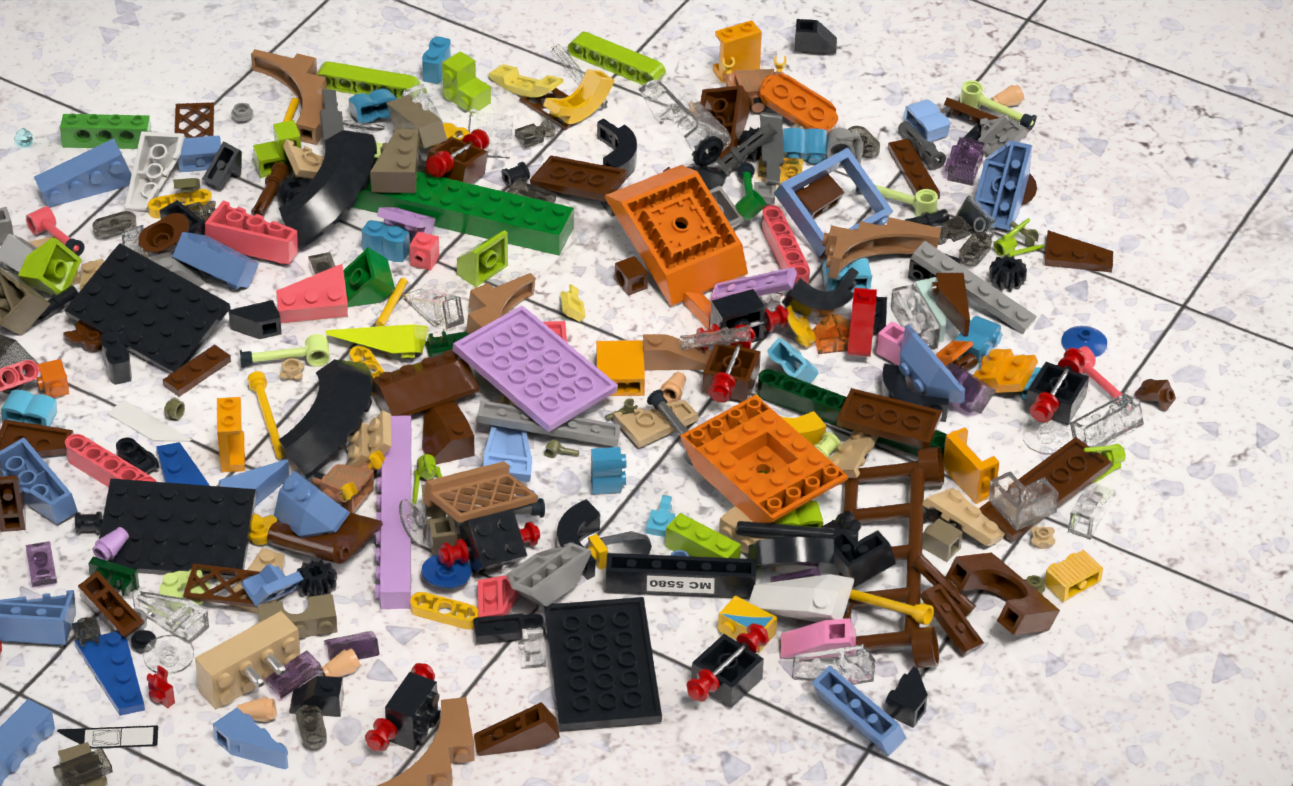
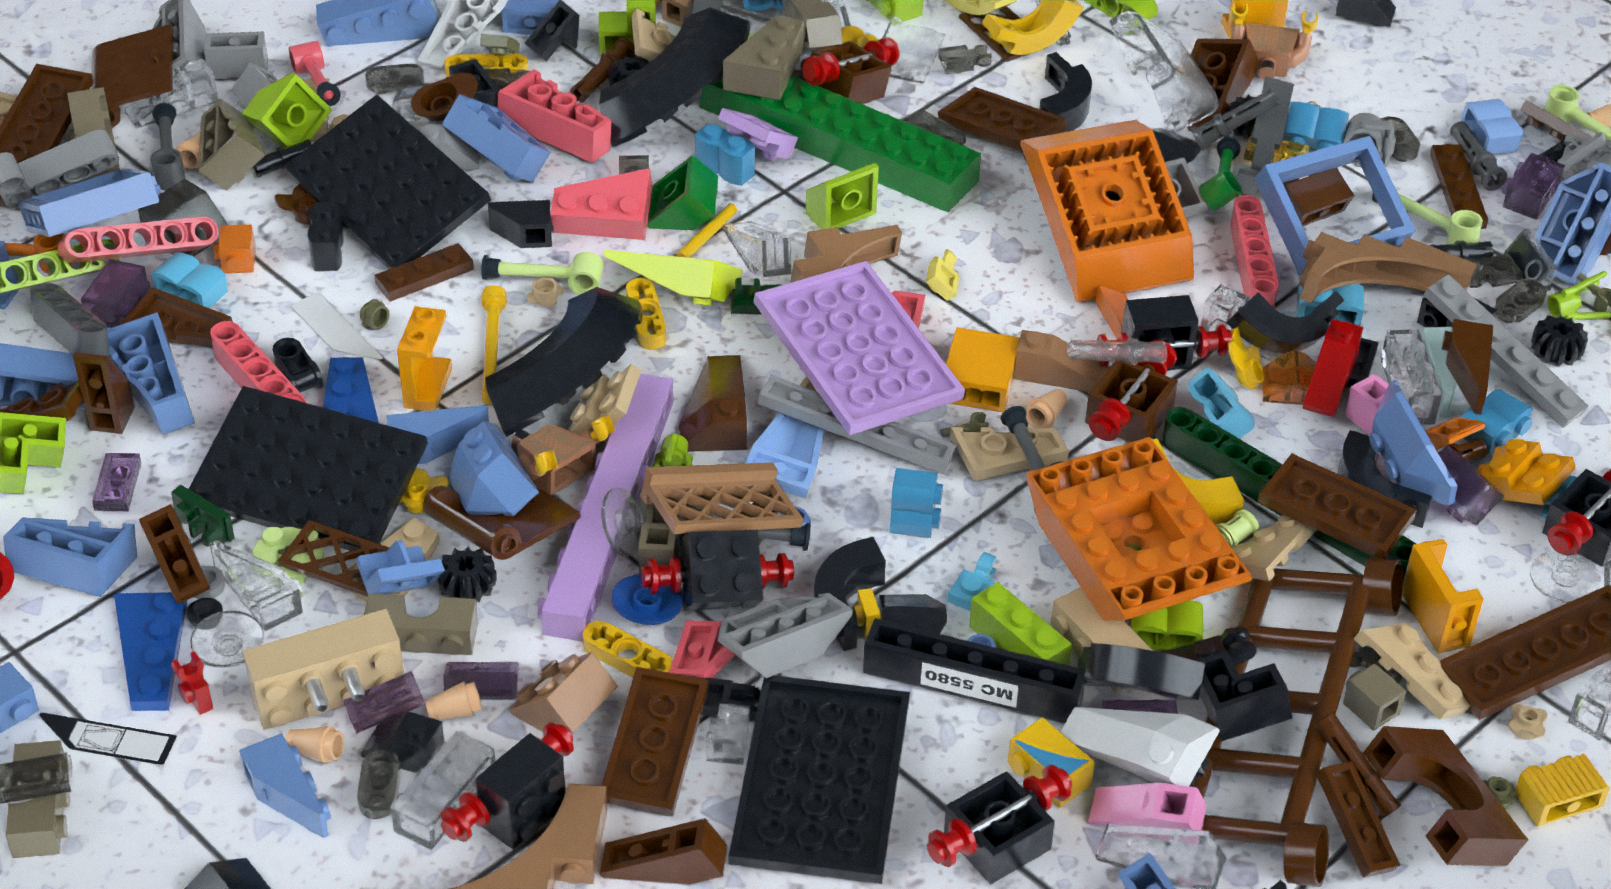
camera: 15 degrees right, 0 degrees up
(81, 518) = (190, 434): black bush -> none
(86, 630) = (134, 582): clear smoke plate -> none
(110, 544) = (207, 473): lavender cone -> none
(359, 711) = (438, 786): none -> clear brick
(413, 643) = (564, 693): none -> medium nougat slope
(424, 251) = (770, 174): coral brick -> none
(424, 384) = (706, 342): reddish brown slope -> none
(486, 661) = (654, 740): none -> reddish brown plate
(516, 173) = (926, 100): black bush -> none
(554, 447) = (856, 457): olive hand -> none
(631, 275) = (1033, 253): reddish brown brick -> none
(714, 147) = (1193, 112): black gear -> none
(762, 284) = (1203, 292): lavender tile -> none
(771, 530) = (1145, 639): black axle -> none
(797, 102) = (1320, 74): orange tile -> none
(921, 613) = (1310, 801): yellow piece -> none
(1021, 503) = (1504, 667): clear brick -> none

